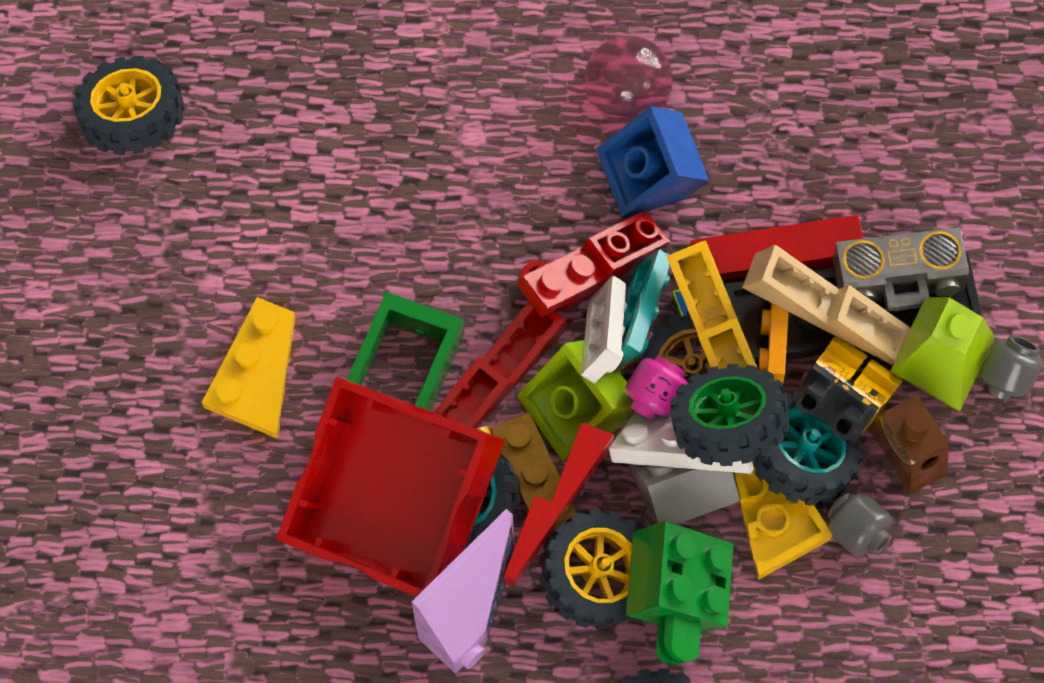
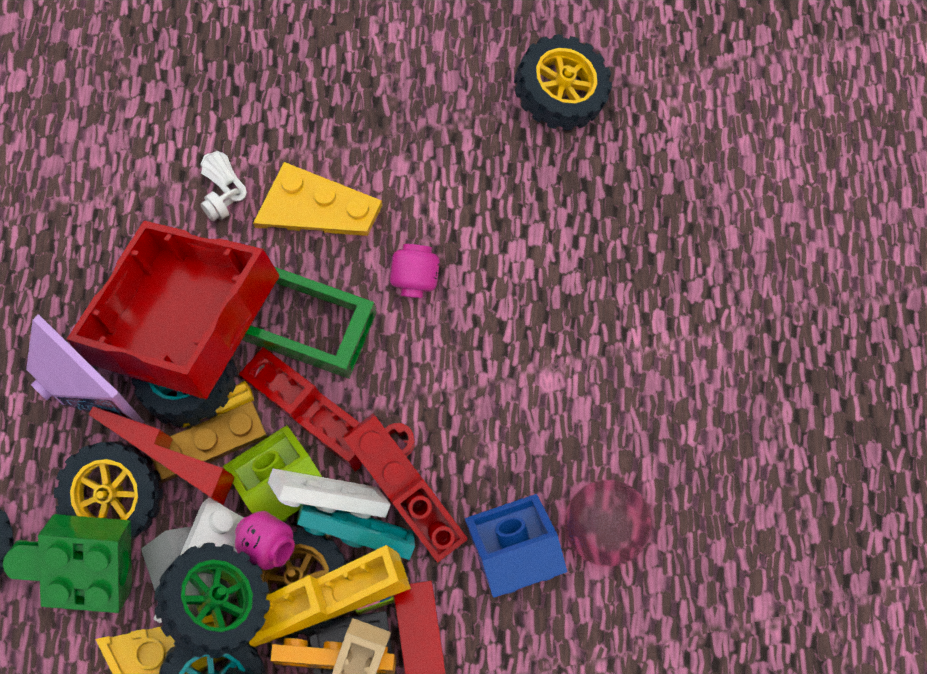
camera: 90 degrees right, 5 degrees up
(204, 477) = (219, 170): none -> white piece
(345, 259) = (414, 270): none -> dark pink head

